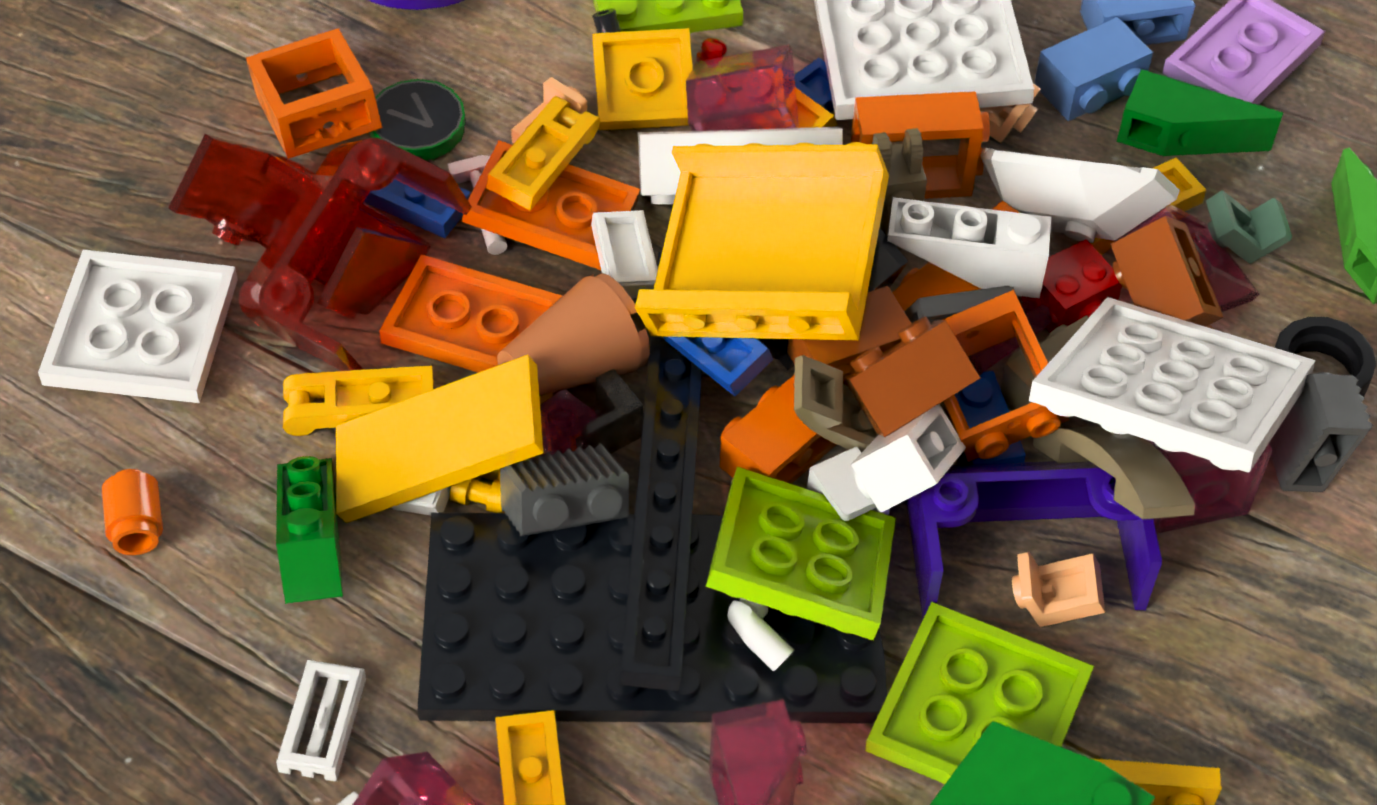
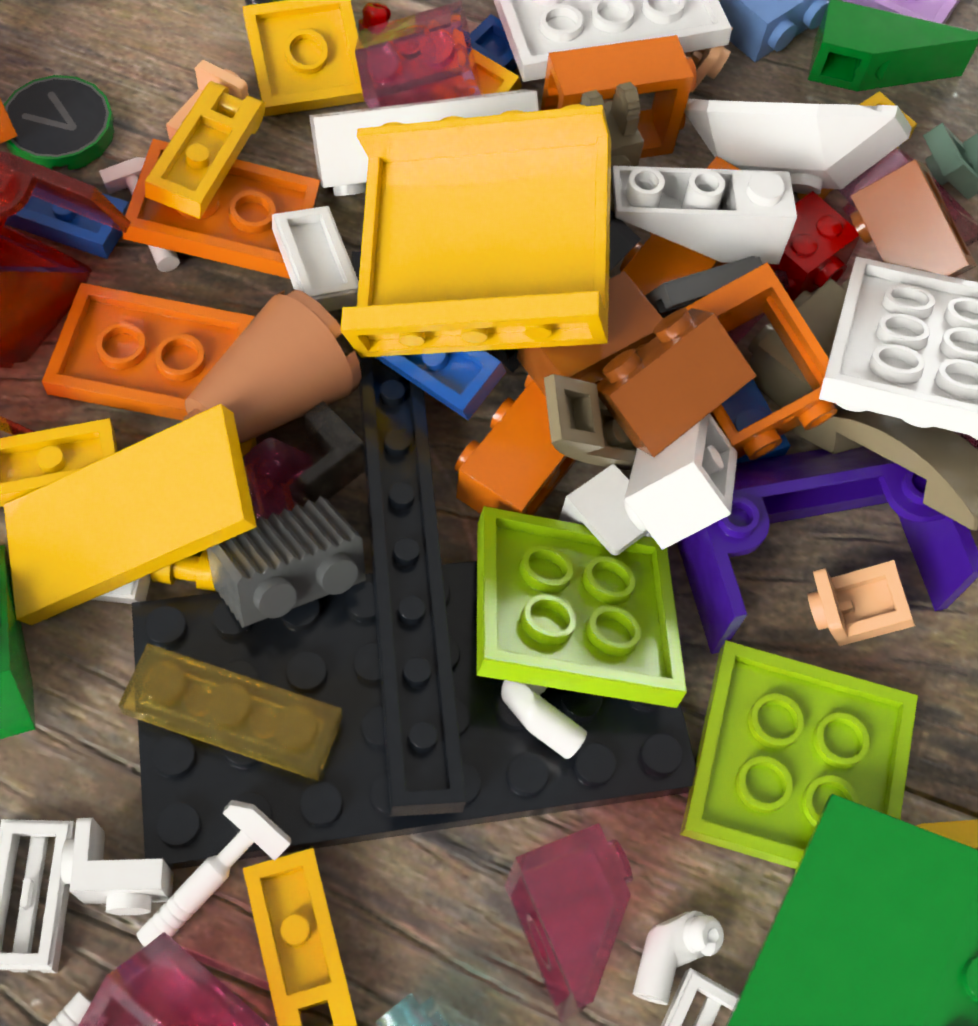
camera: 15 degrees left, 10 degrees up
(393, 714) = (122, 885): none -> white bracket
(473, 715) = (215, 869): none -> white piece
(503, 599) = (231, 711): none -> clear yellow plate

